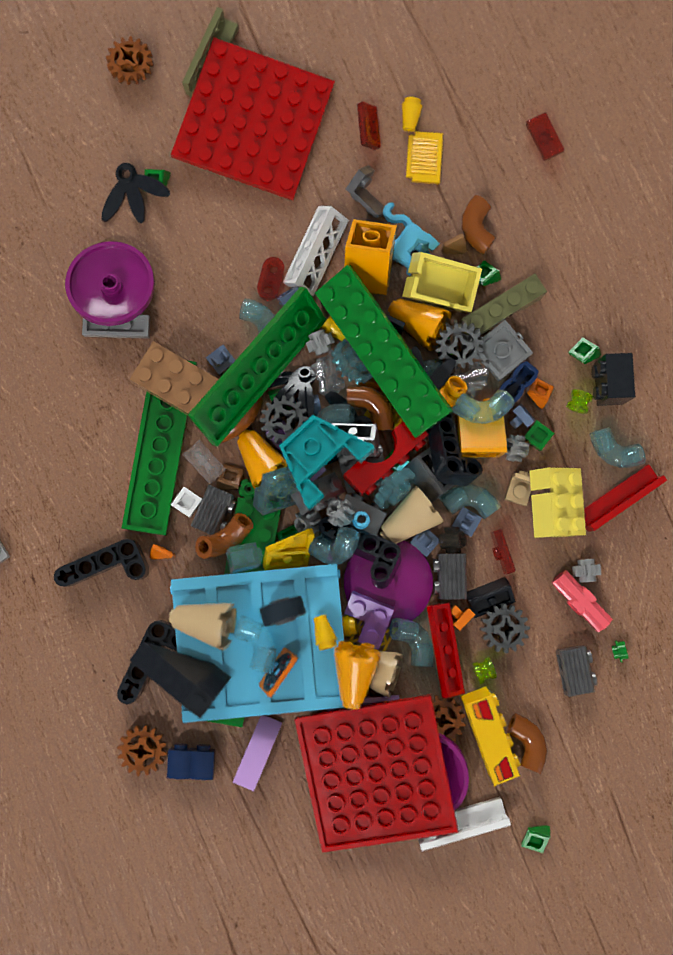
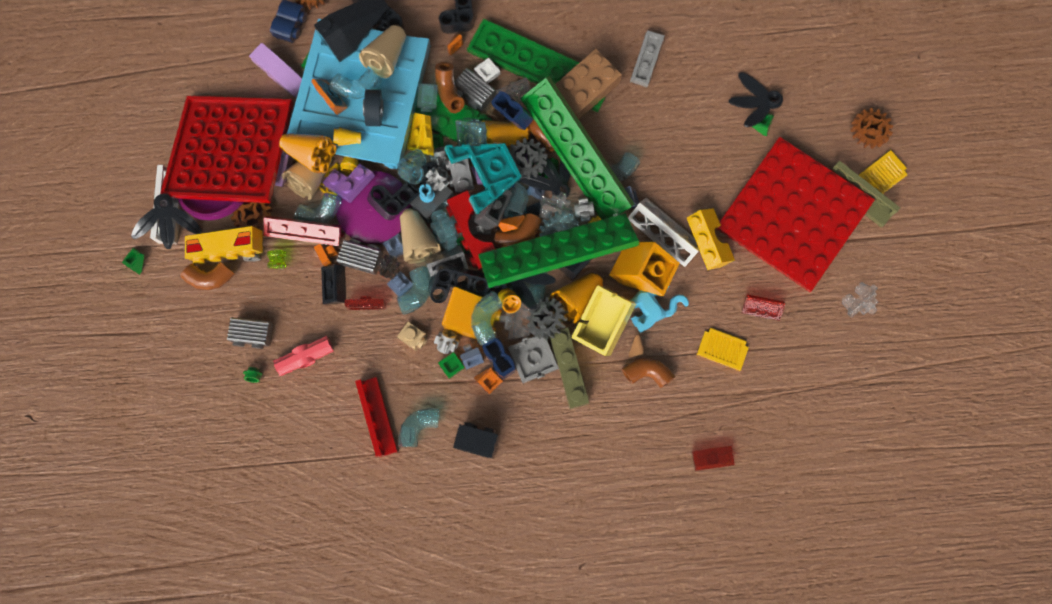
camera: 115 degrees right, 5 degrees down
(110, 283) = (682, 60): magenta dish -> none
(176, 39) = (885, 172): none -> yellow window
(220, 360) = (596, 130): sand blue tile -> none
(230, 456) = (512, 110): none -> dark blue brick
(270, 279) = (651, 188): clear red plate -> none
(301, 208) = (712, 250): none -> yellow arch
(336, 34) = (864, 301): none -> clear hips
(360, 194) = (703, 283): flat silver bracket -> none
(363, 413) = (511, 223): none -> orange slope
(410, 113) = (765, 347): yellow cone -> none
(481, 816) = (164, 215): none -> black plant
(489, 274) = (603, 367): green slope -> none
(505, 638) = (302, 293): dark grey gear -> none
(562, 509) = (382, 360): light yellow piece -> none
(579, 401) = (468, 409): clear neon green wheel -> none
(585, 351) = (511, 430): green slope -> none
(586, 570) = (326, 367): light grey gear -> none

